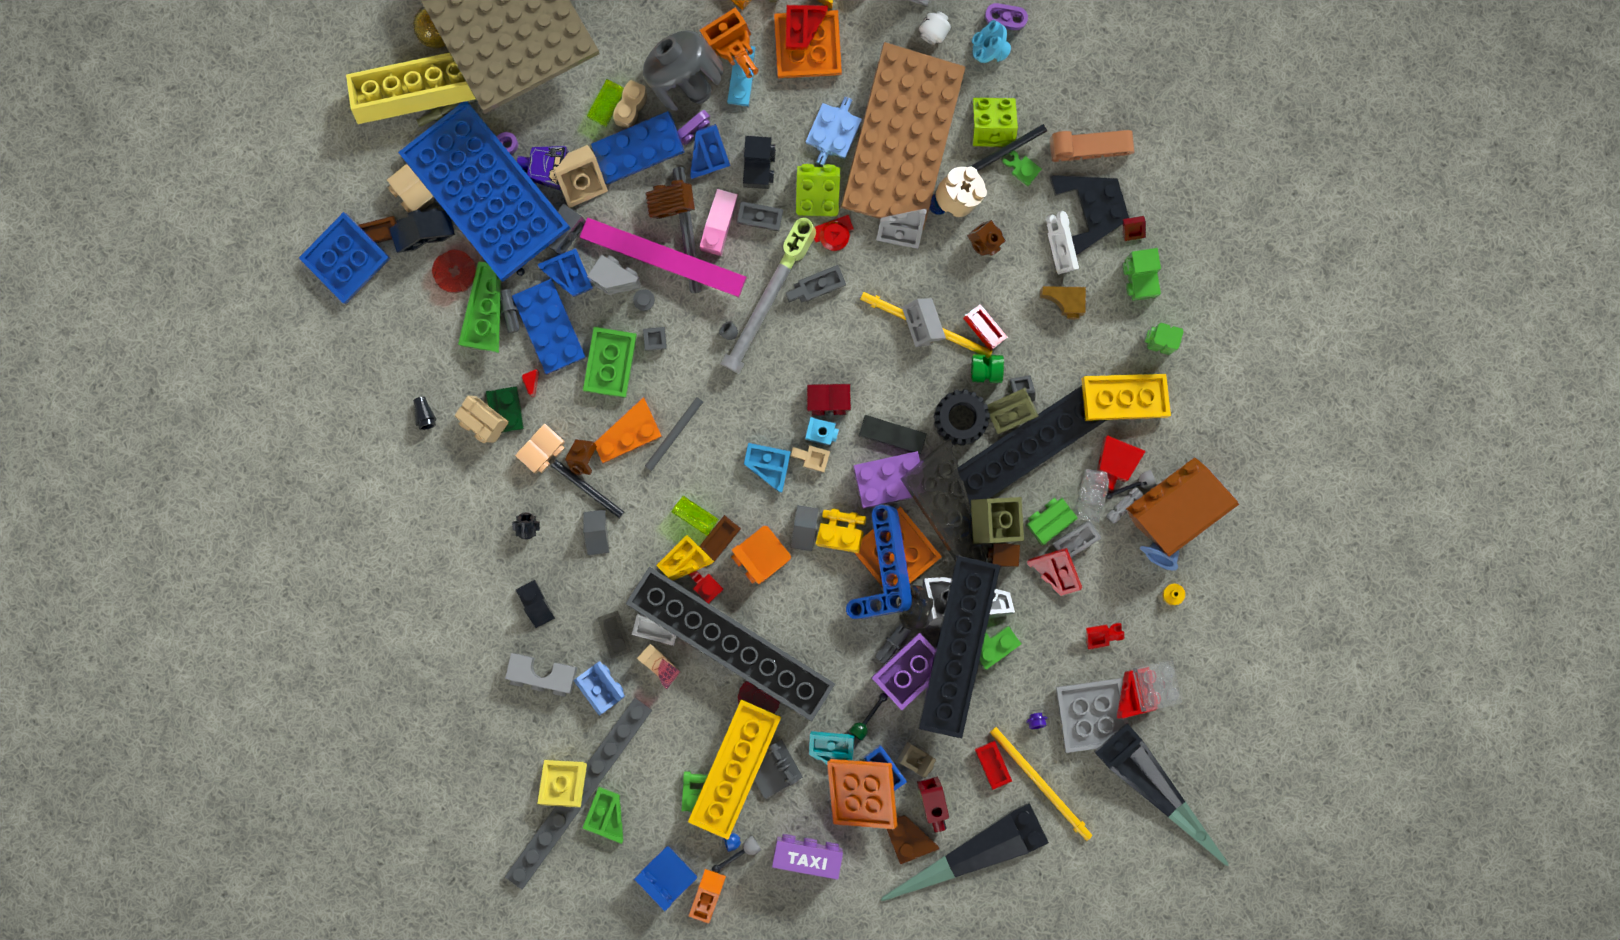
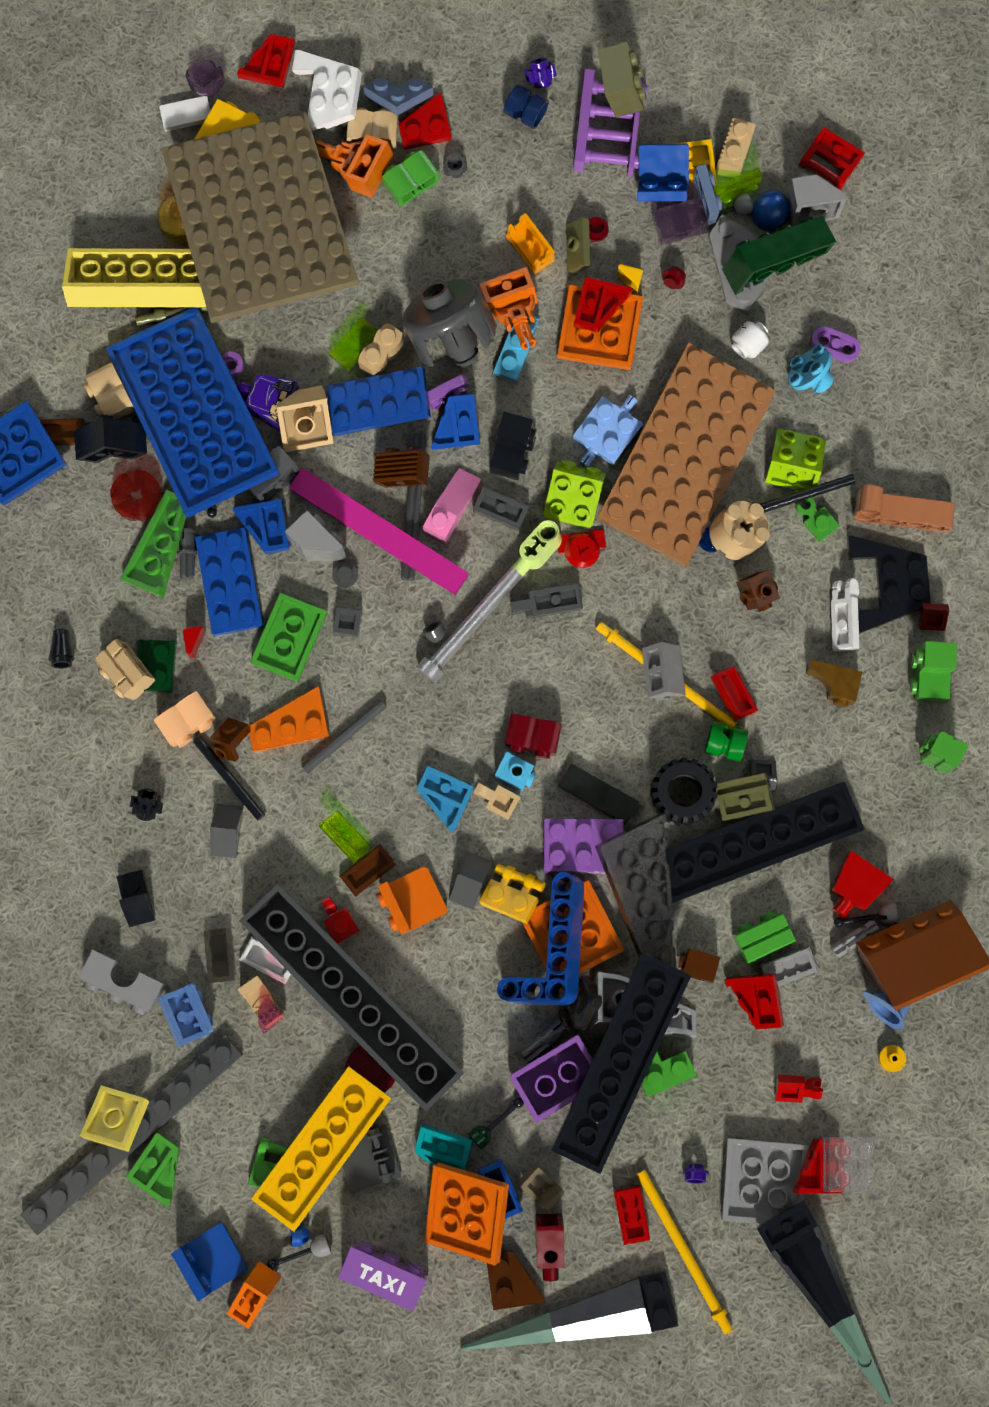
camera: 20 degrees right, 5 degrees down
(684, 559) = (320, 885): yellow wing -> none
(902, 228) = (662, 558): light grey wing -> none
(997, 520) = (699, 921): olive brick -> none
(1092, 495) = (819, 917): clear brick -> none
(1126, 397) = (883, 810): yellow plate -> none

